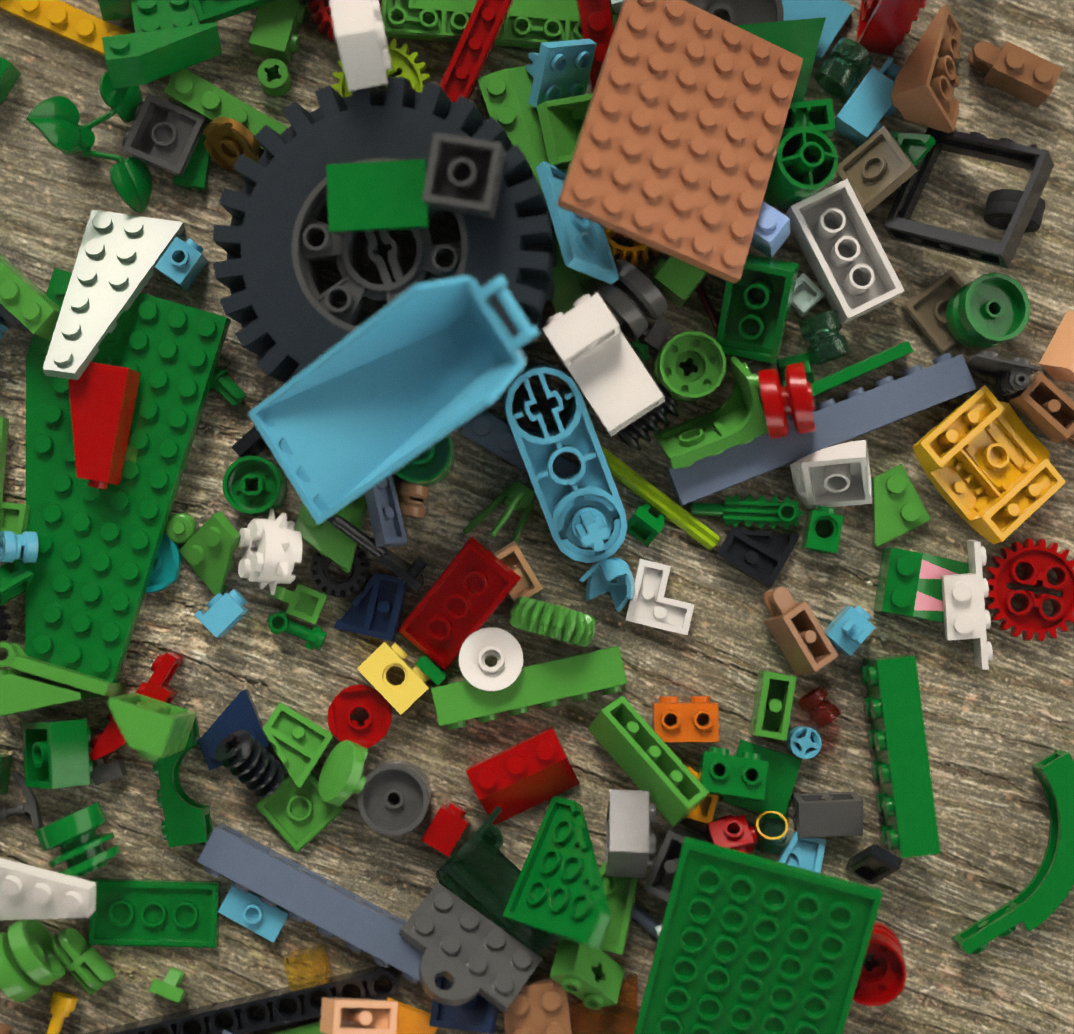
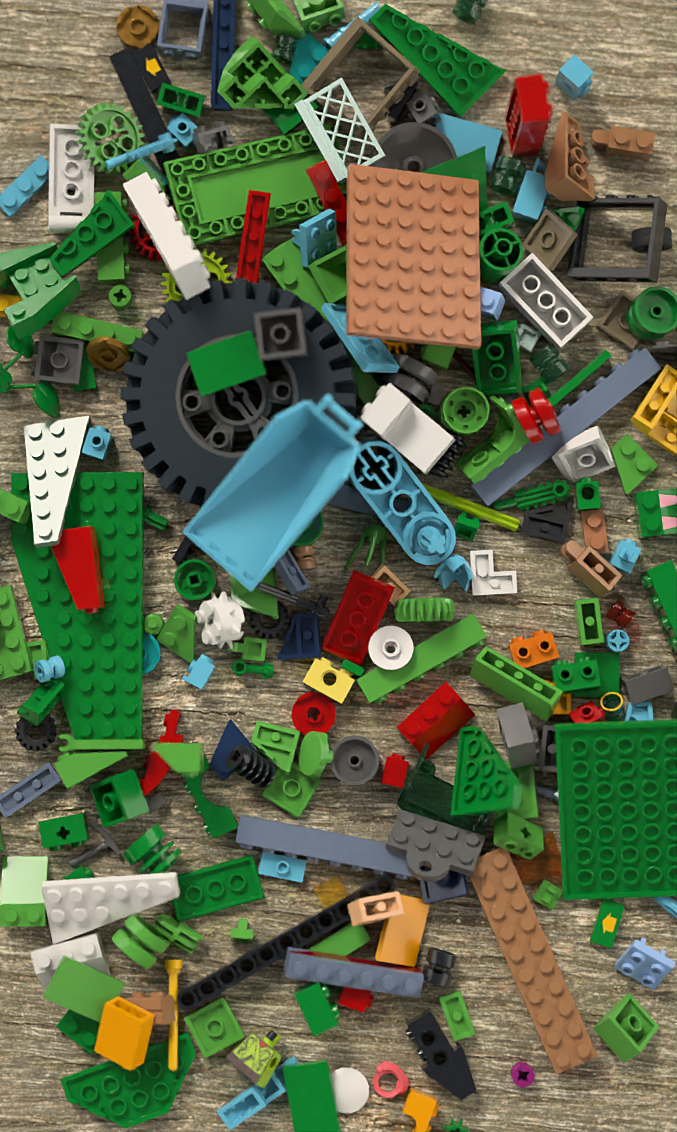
camera: 15 degrees left, 0 degrees up
(818, 581) = (594, 530): none -> nougat plate

